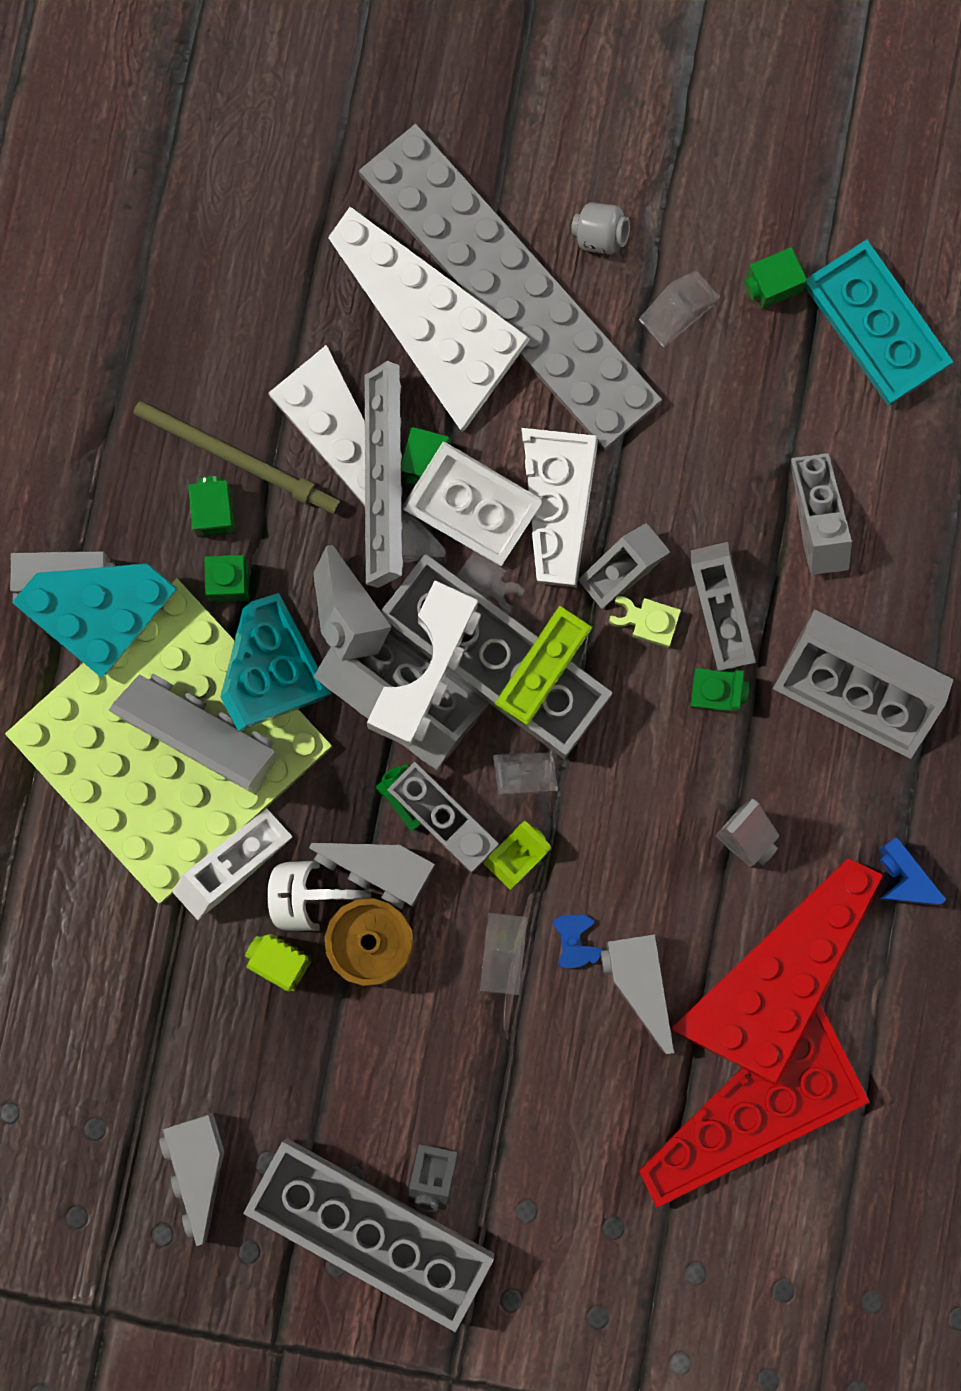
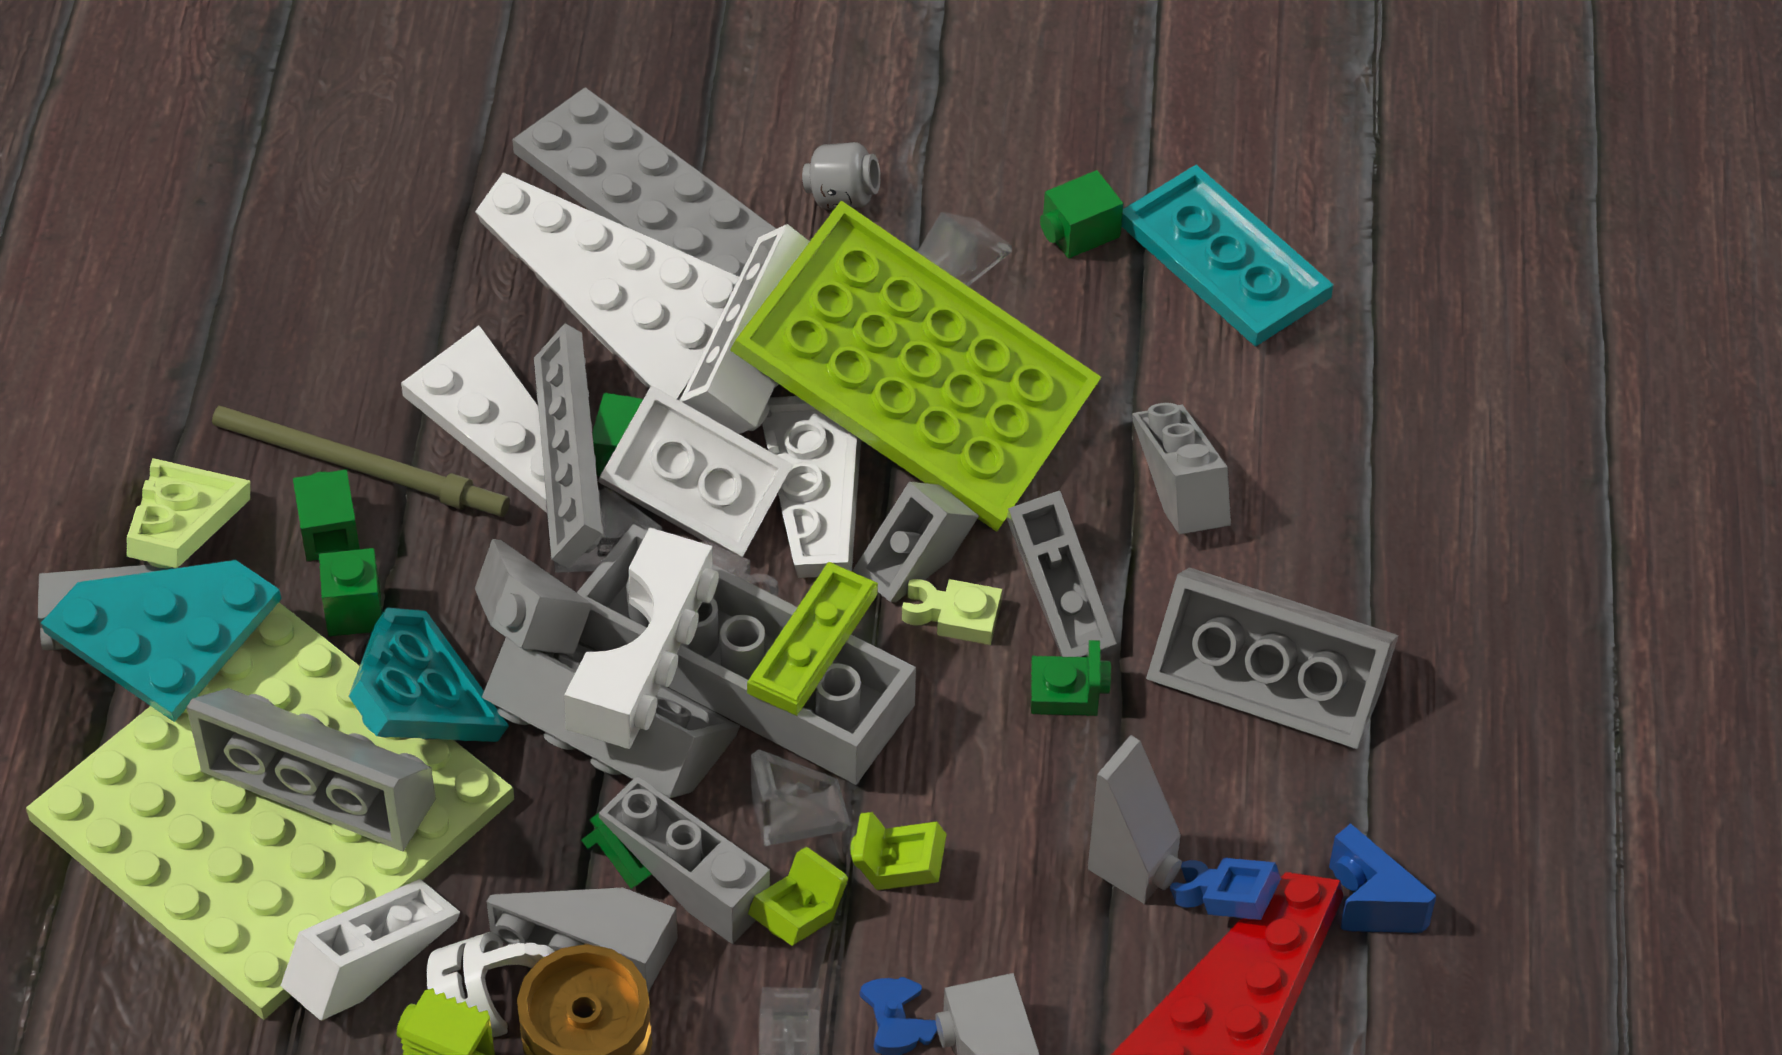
camera: 10 degrees left, 30 degrees down
(109, 504) = (181, 512): none -> yellowish green wing
(526, 384) = (722, 382): none -> white brick
(587, 823) = (898, 854): none -> lime bracket
(638, 423) = (916, 364): none -> lime plate
(810, 874) = (1232, 890): none -> blue plate

